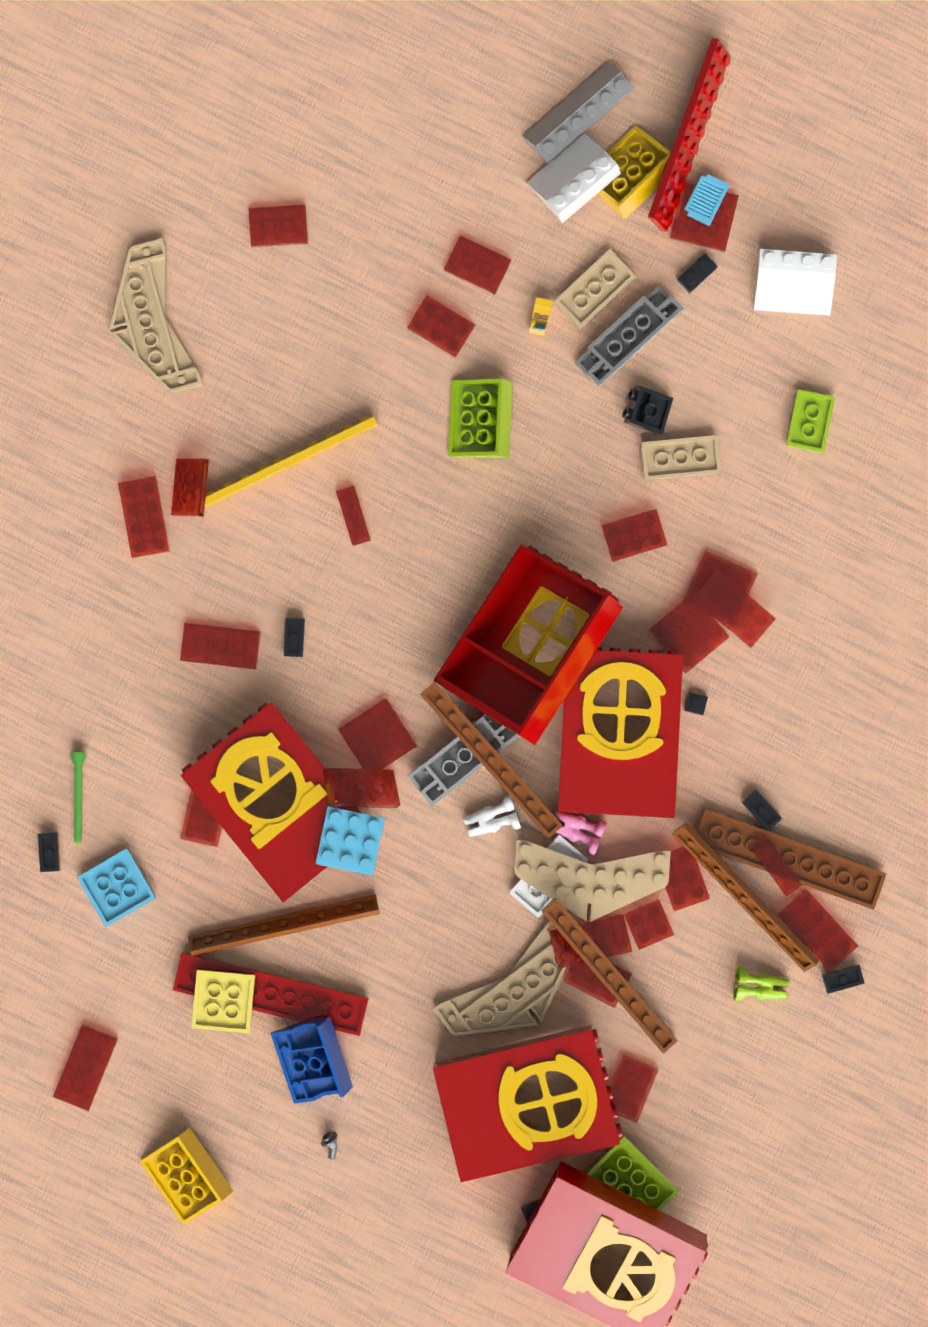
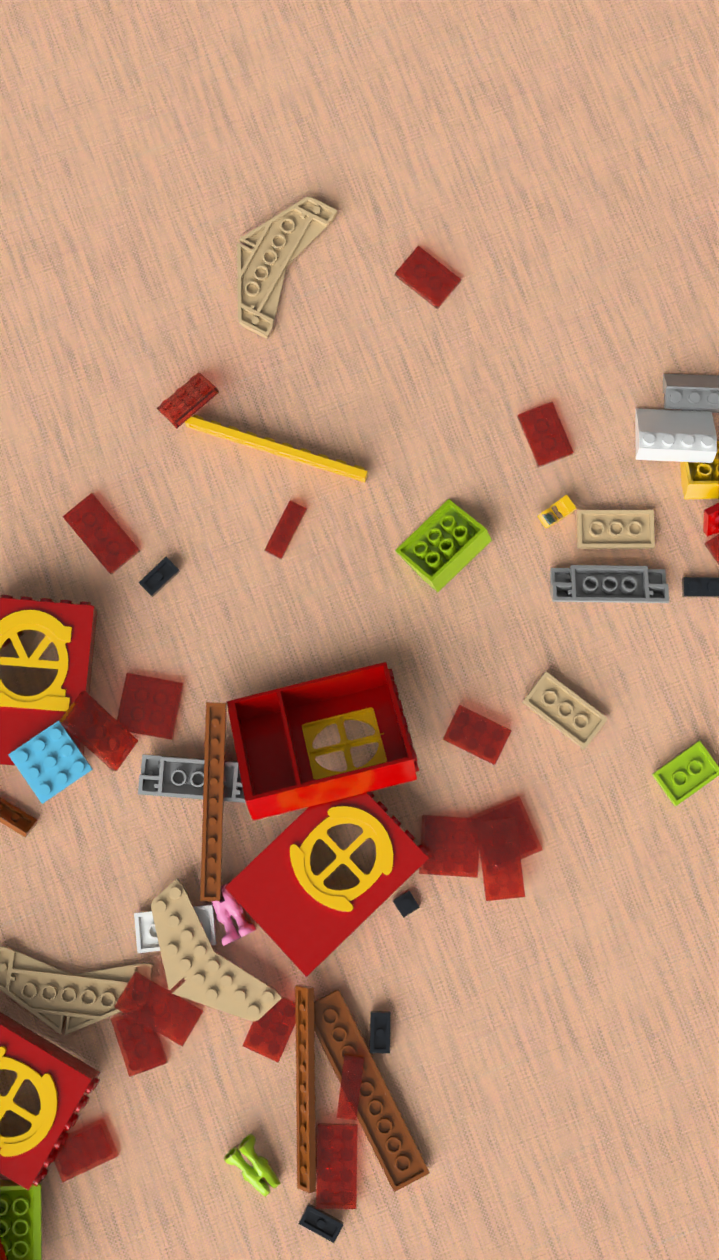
camera: 40 degrees right, 5 degrees down
(144, 517) = (136, 391): clear red plate -> none
(441, 326) = (477, 453): clear red plate -> none
(486, 818) = (169, 844): white piece -> none
(609, 975) = (146, 1049): dark orange plate -> none
(647, 409) = (572, 652): black plate -> none
(648, 924) = (214, 1037): clear red plate -> none

